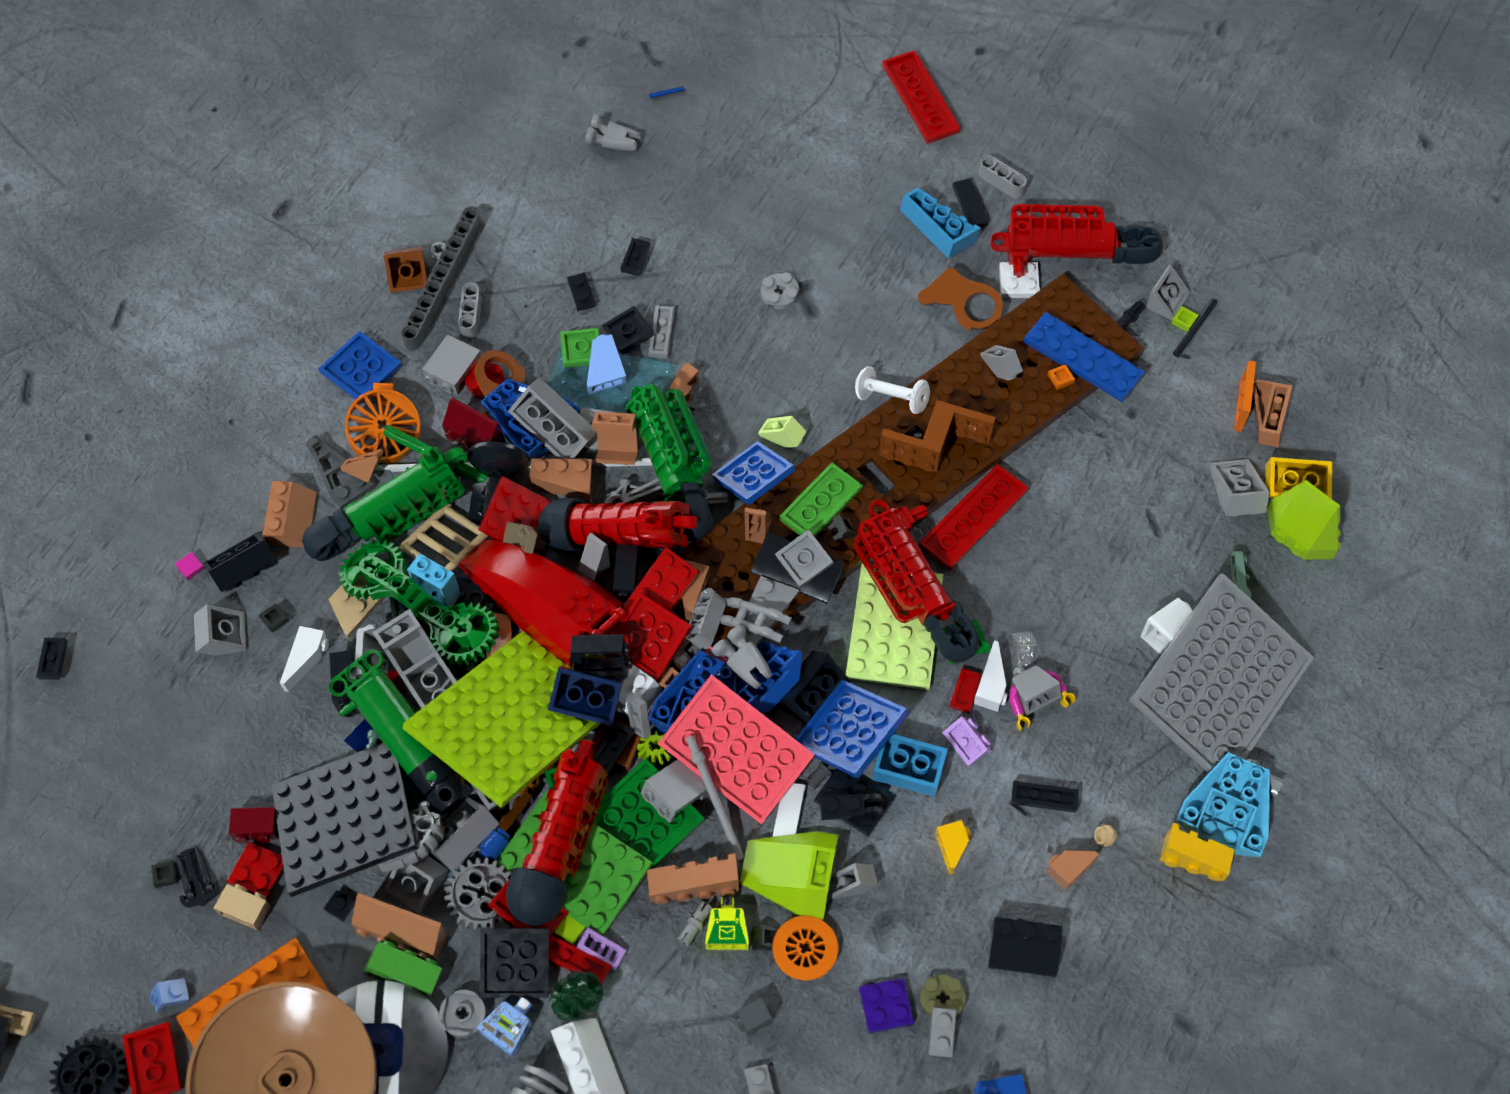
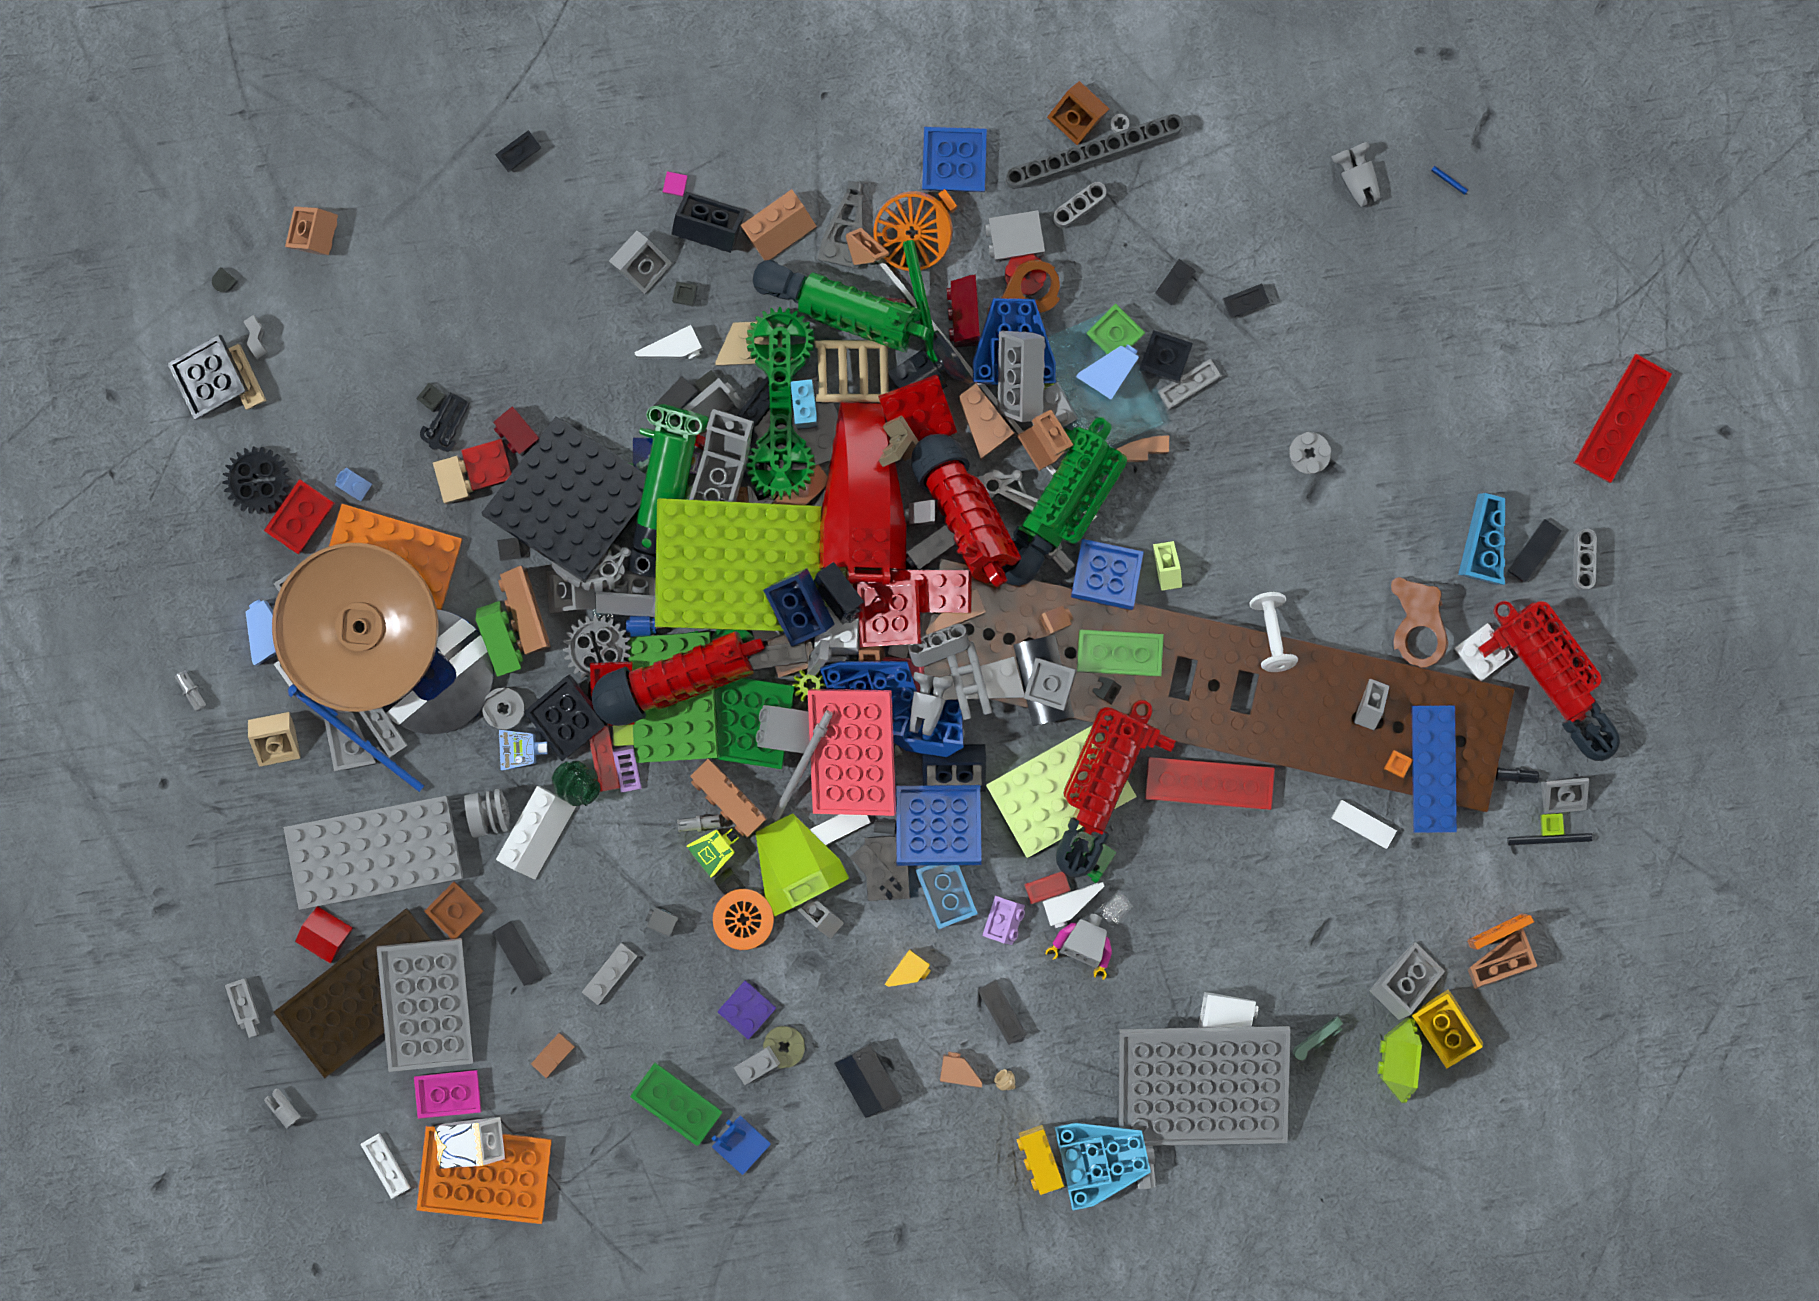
camera: 55 degrees right, 25 degrees up
(943, 421) = (1249, 706): dark orange bracket -> none
(1089, 437) = (1363, 824): none -> white tile

